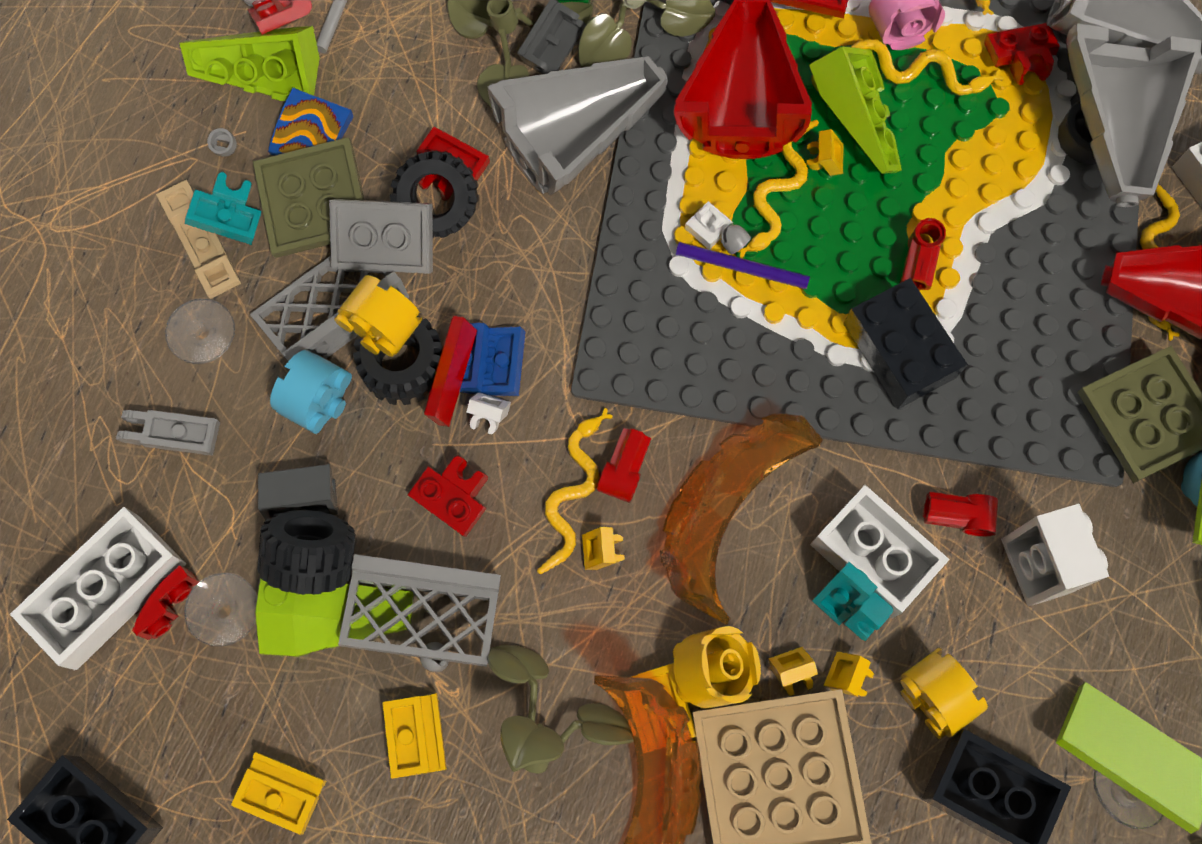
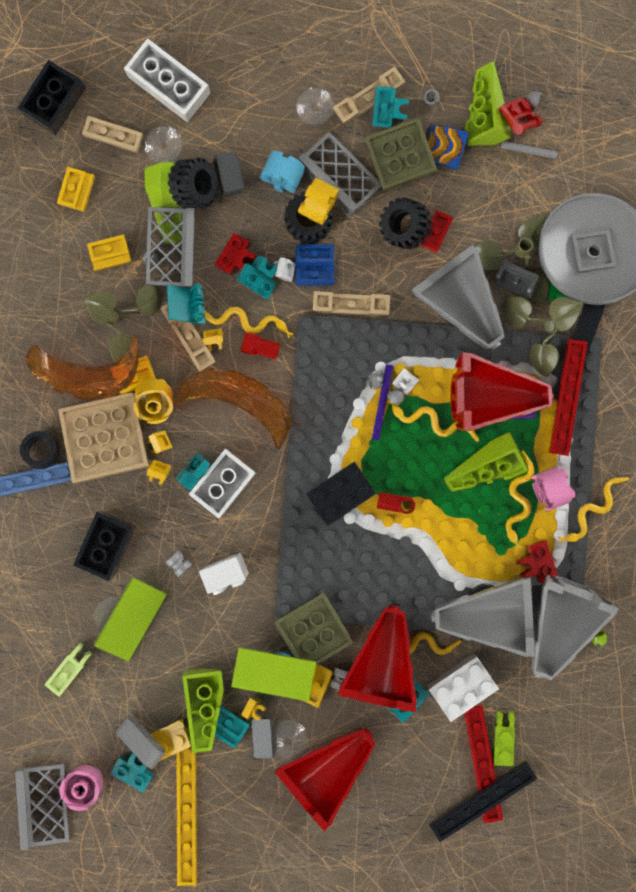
camera: 85 degrees right, 15 degrees up
(157, 613) = (160, 113): red slope -> none
(171, 431) = (257, 102): light grey hinge -> none
(182, 709) = (112, 134): none -> tan plate
(381, 236) = (376, 196): light grey tile -> none
(450, 371) = (301, 246): red tile -> none
(494, 455) = (258, 277): none -> teal plate
(533, 589) = (186, 304): none -> teal hinge
(562, 300) = (351, 304): none -> tan slope
(592, 595) = (191, 341): none -> tan slope
(704, 272) = (375, 381): none -> light grey hinge
(830, 153) = (456, 448): yellow tile -> none
(942, 693) = (150, 517): yellow brick -> none
(972, 513) = (250, 529): red piece -> none
(1027, 652) = (178, 563): none -> light grey wheel

